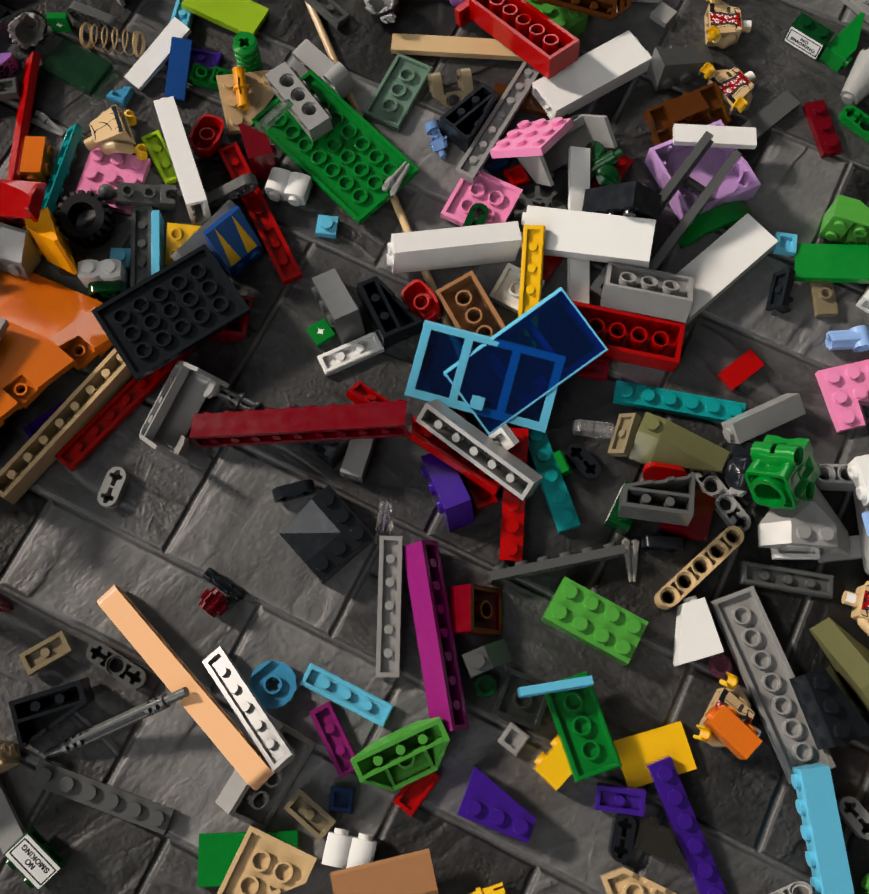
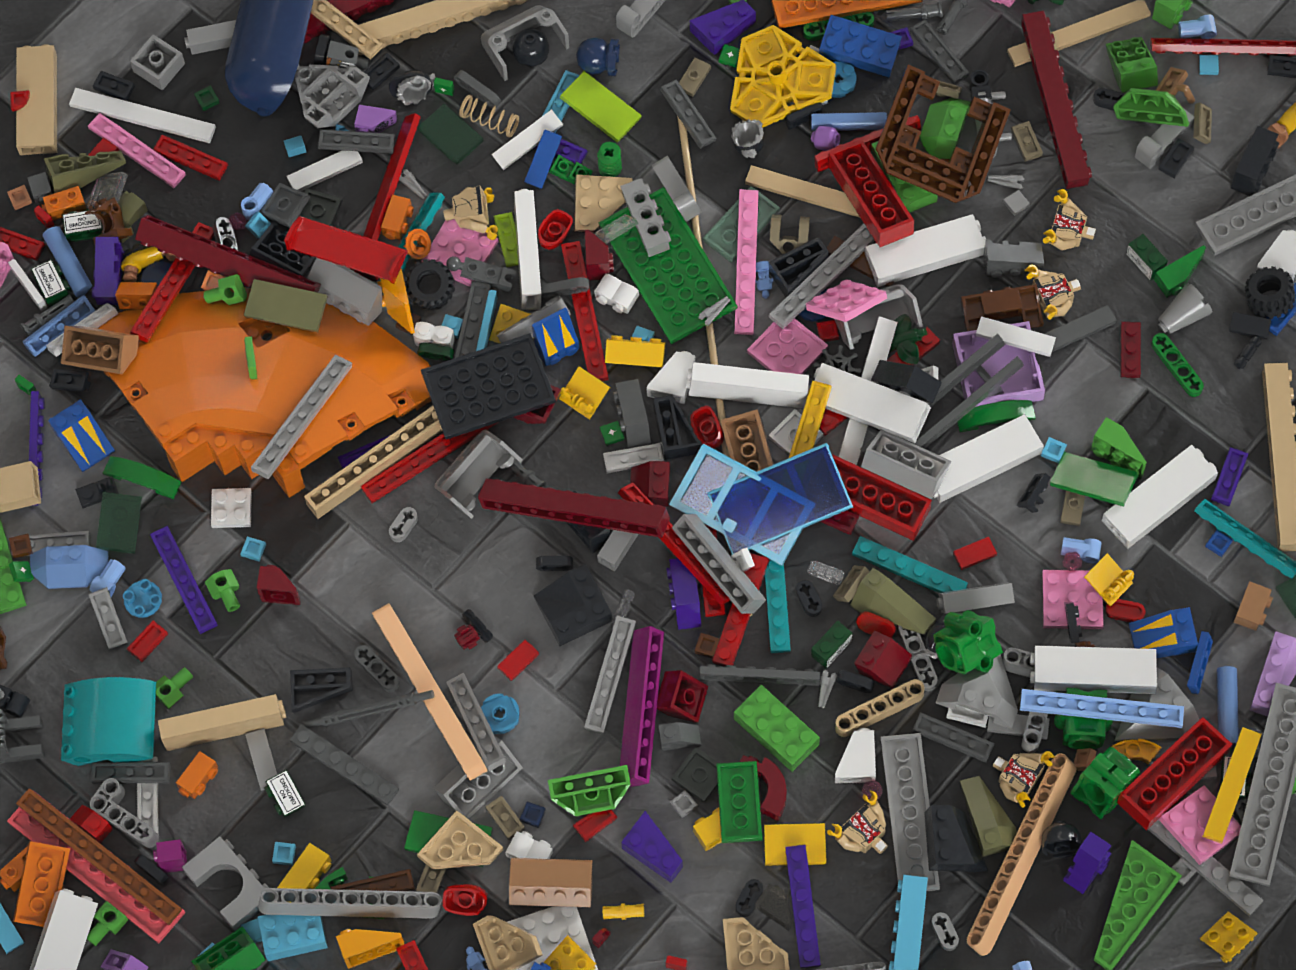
camera: 20 degrees right, 5 degrees down
(46, 653) = (322, 644): dark tan plate -> none
(69, 175) = (422, 239): none -> orange gear
(121, 95) = (484, 171): dark azure tile -> none
(241, 88) = (596, 192): light orange pin -> none
(279, 613) = (518, 660): none -> red tile
(280, 296) = (584, 392): none -> yellow hinge
(323, 240) = (635, 351): none -> yellow brick
(334, 738) = (538, 767): magenta tile -> none
(347, 695) = (557, 737): medium azure tile -> none
(370, 258) = (672, 378): none -> white slope
(379, 373) = (653, 480): none -> dark red slope
(414, 126) = (746, 262): none -> bright pink plate
(470, 219) = (771, 362): dark green beam -> none
(485, 686) = (672, 758): dark green tile -> none
(488, 543) = (706, 645): none -> reddish brown plate
(556, 686) = (725, 763): medium azure tile -> none
(562, 462) = (790, 594): green tile -> none
(615, 694) = (773, 778): none -> dark red arch
(620, 799) = (755, 868): dark purple plate -> none
(660, 500) = (854, 640): dark grey wedge -> none
(731, 731) = (858, 834): orange brick -> none
(851, 350) = (1072, 566): none -> clear pink plate

